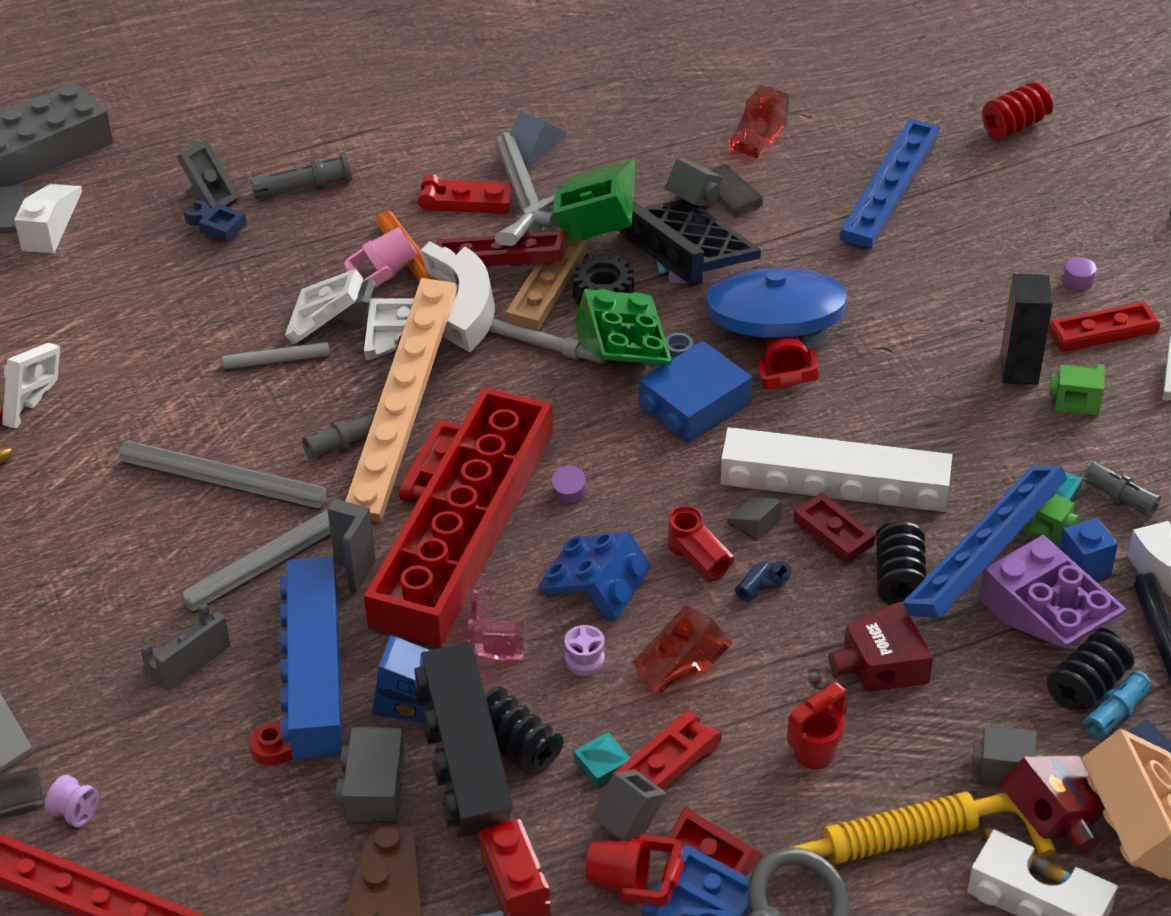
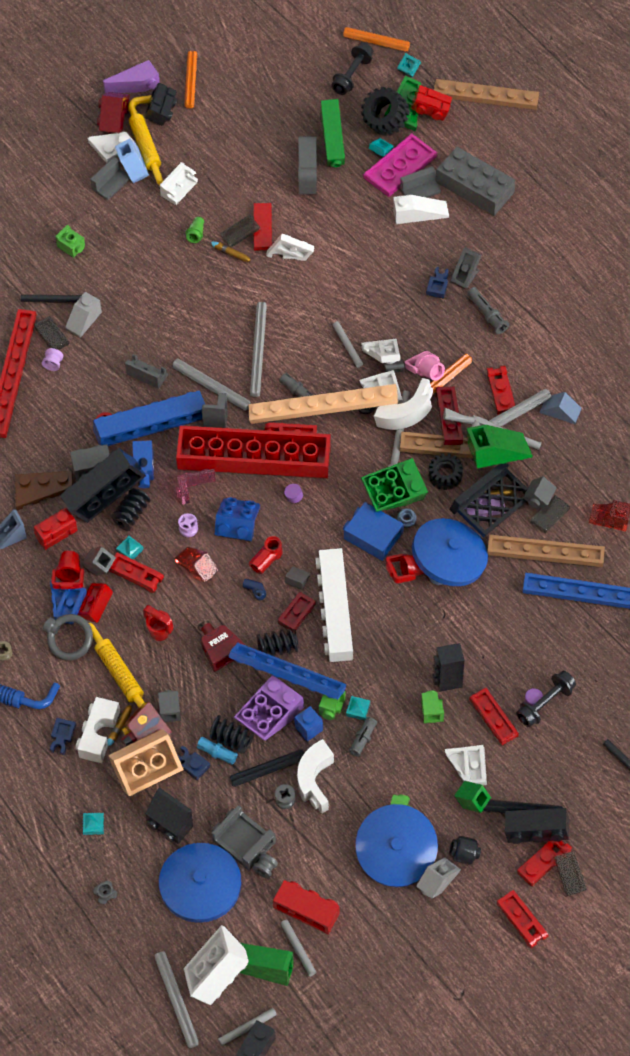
camera: 75 degrees right, 15 degrees up
(802, 204) = (546, 550): none -> medium nougat plate
(1115, 276) = (528, 714): none -> black piece

